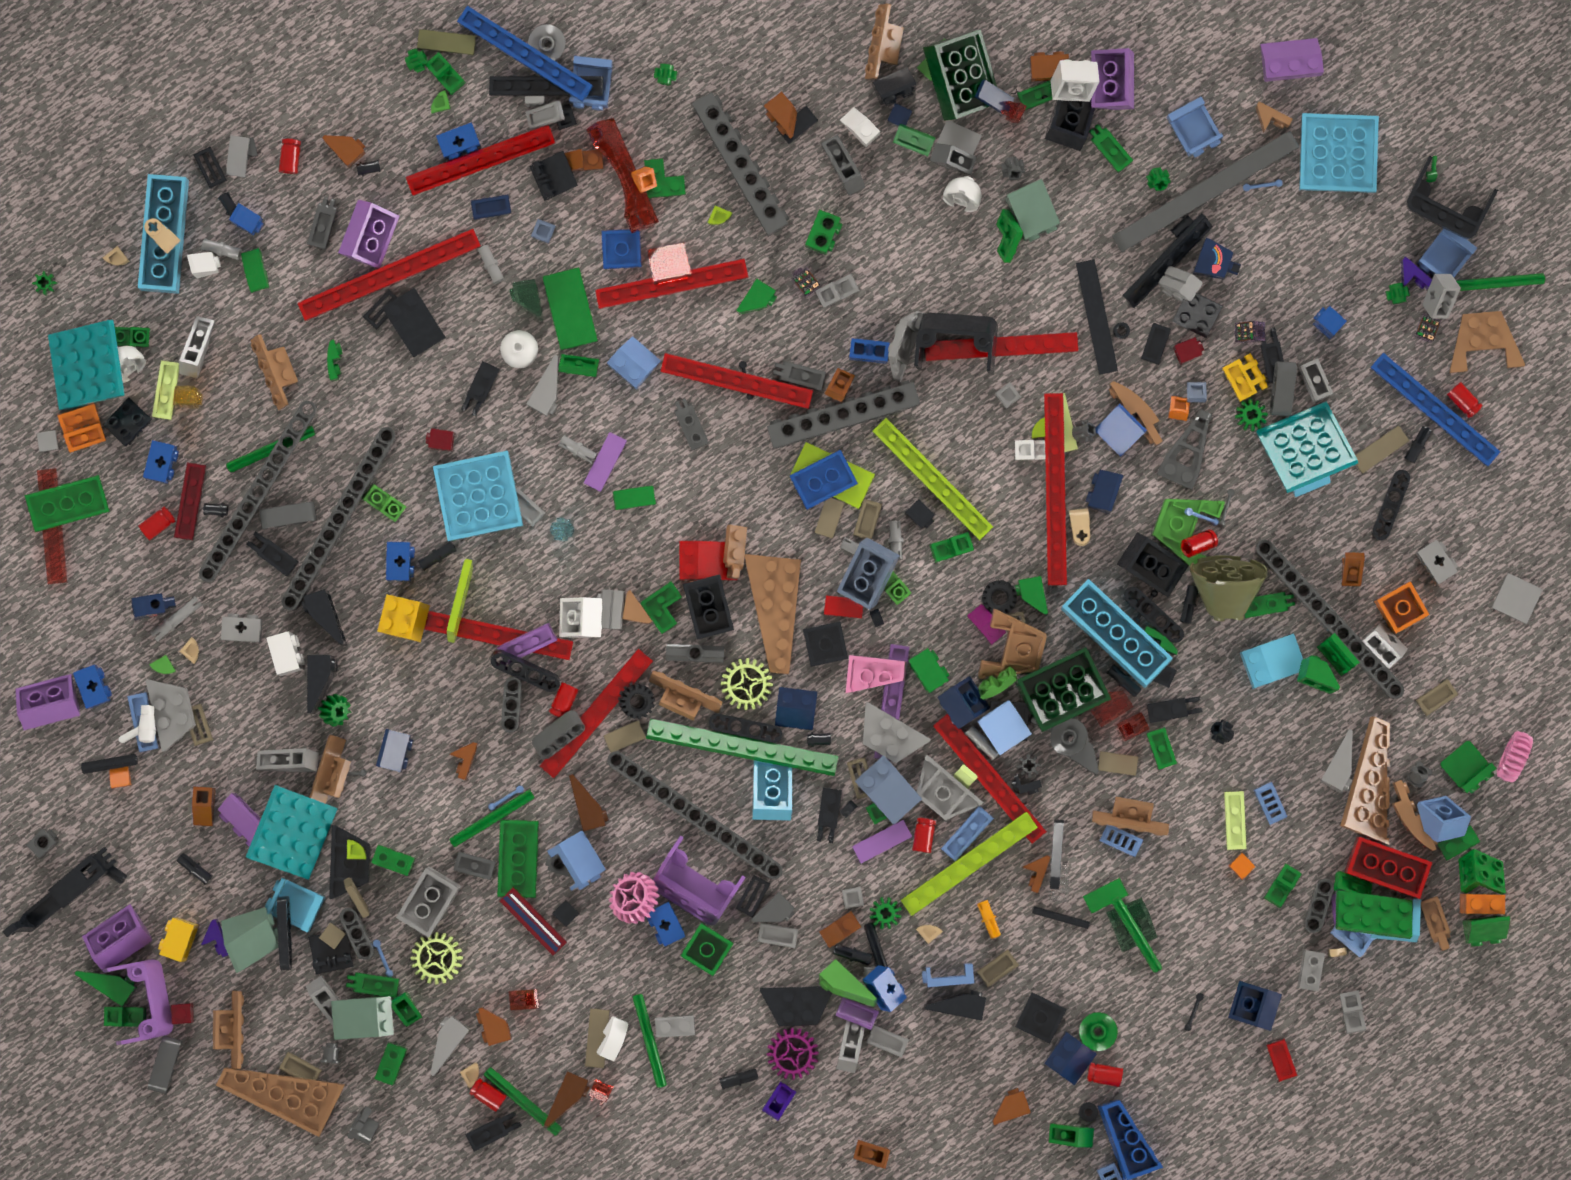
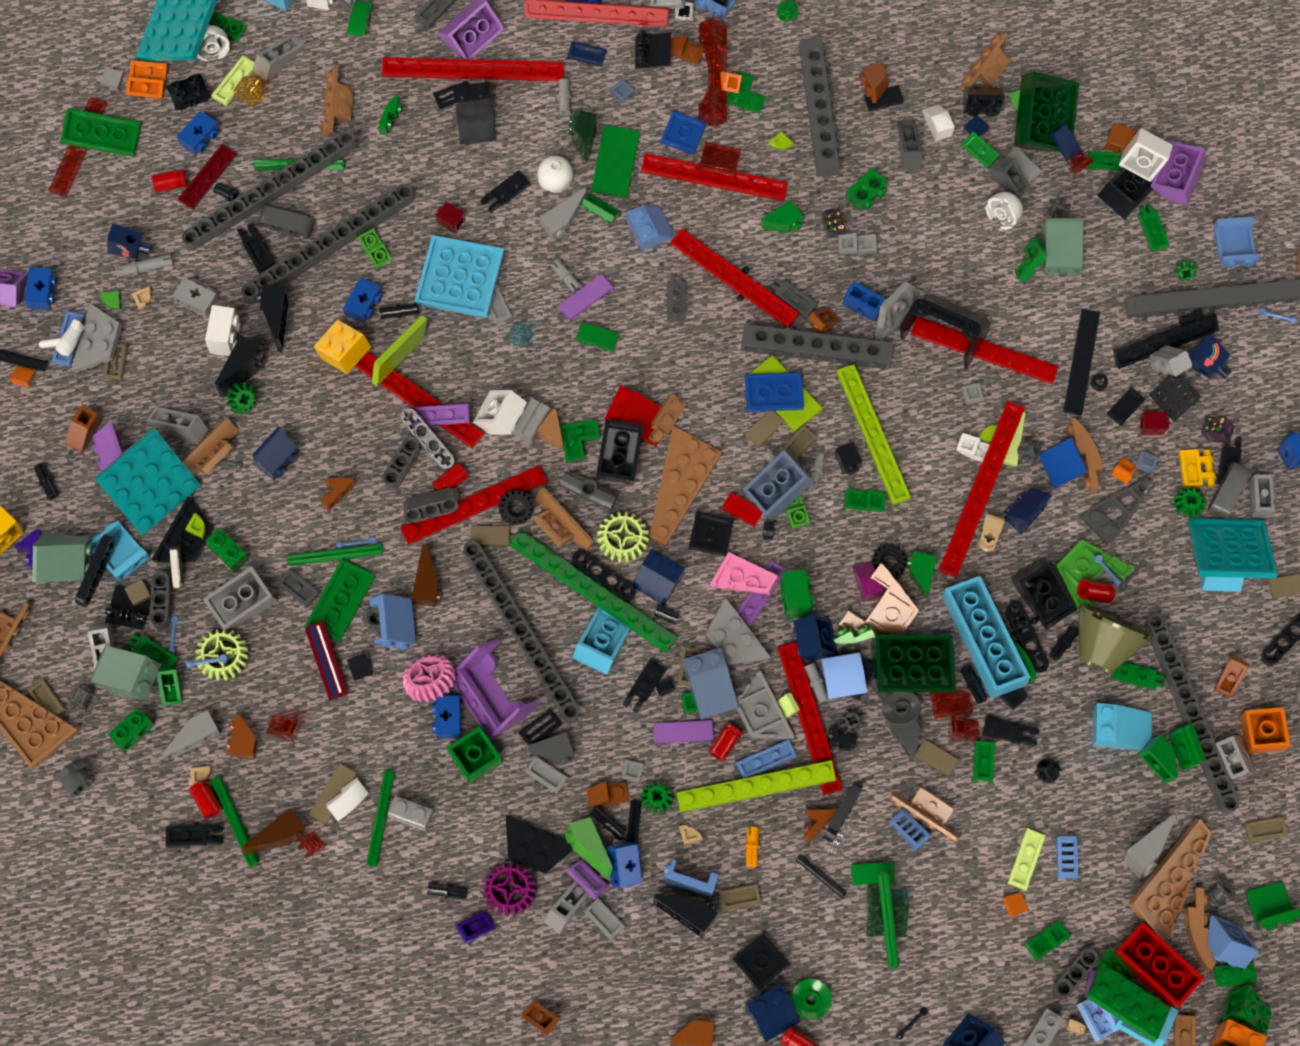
camera: 15 degrees right, 15 degrees down
(441, 964) = (223, 659): none -> medium blue hinge

